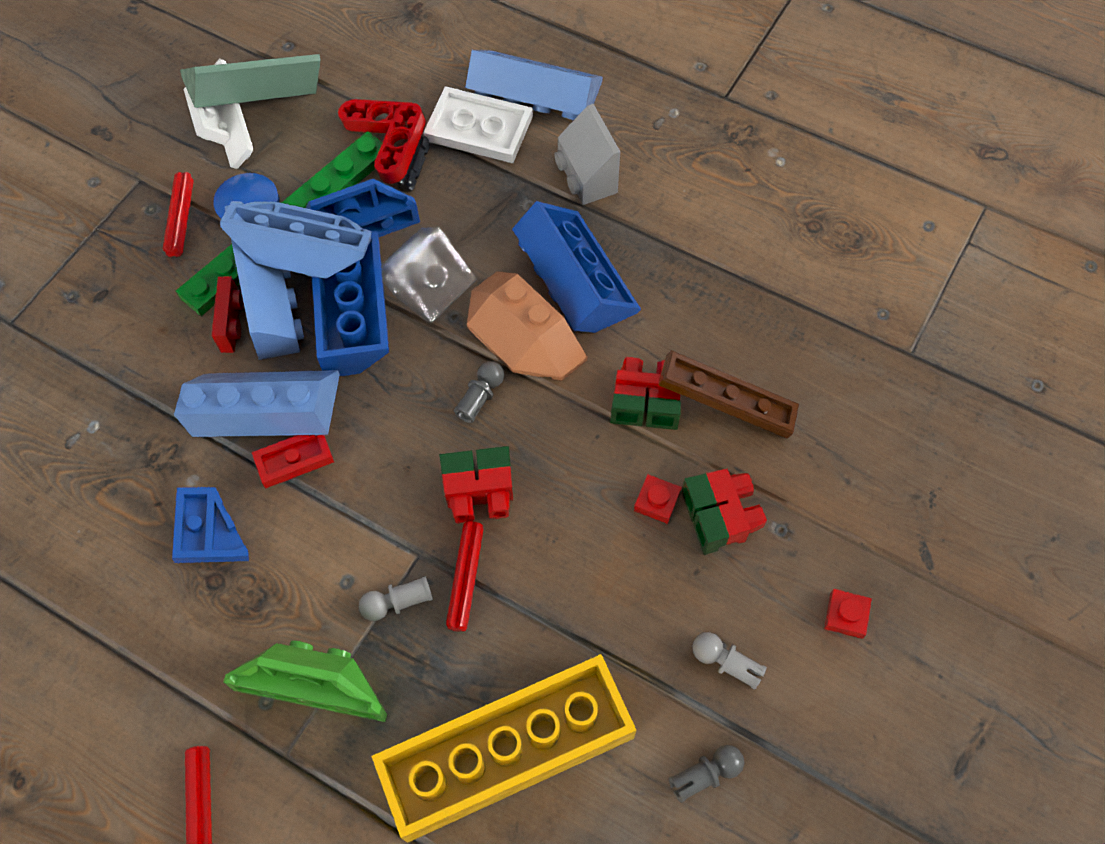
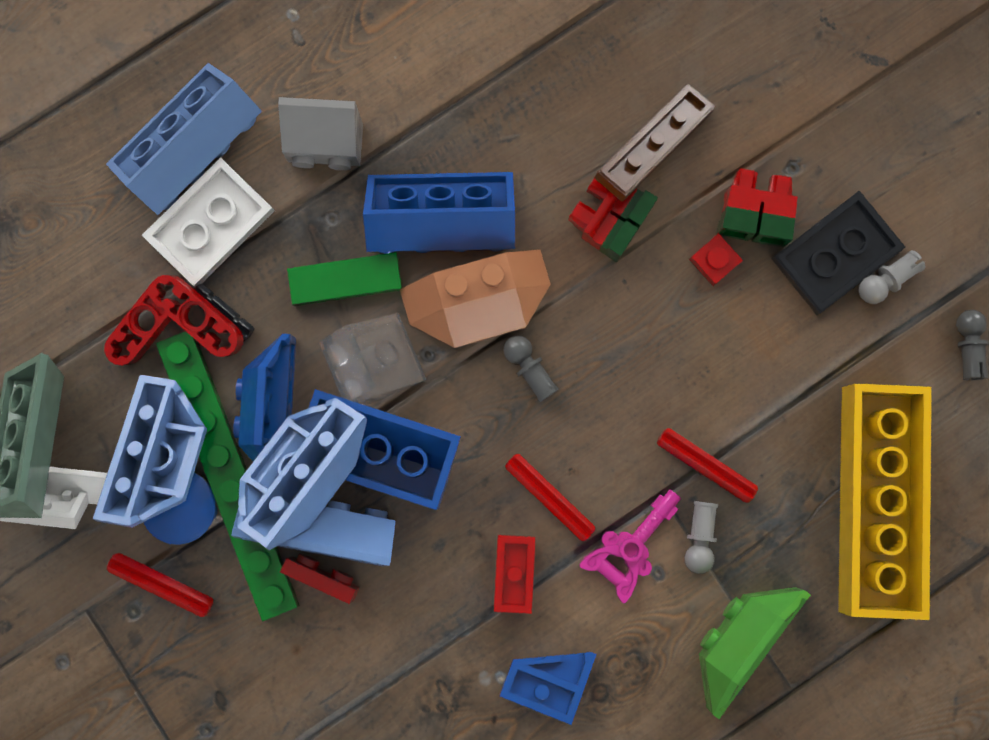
camera: 65 degrees left, 20 degrees up
(258, 403) = (441, 582): medium blue slope -> none
(273, 151) = (152, 456): none -> medium blue wedge
(357, 545) = (630, 548): none -> dark pink piece
(374, 458) = (550, 497): none -> red axle
(464, 490) = (634, 397): red hips -> none
(484, 231) = (344, 279): none -> green tile
(727, 602) = (838, 253): none -> black tile
(848, 613) = (895, 156): red plate -> none

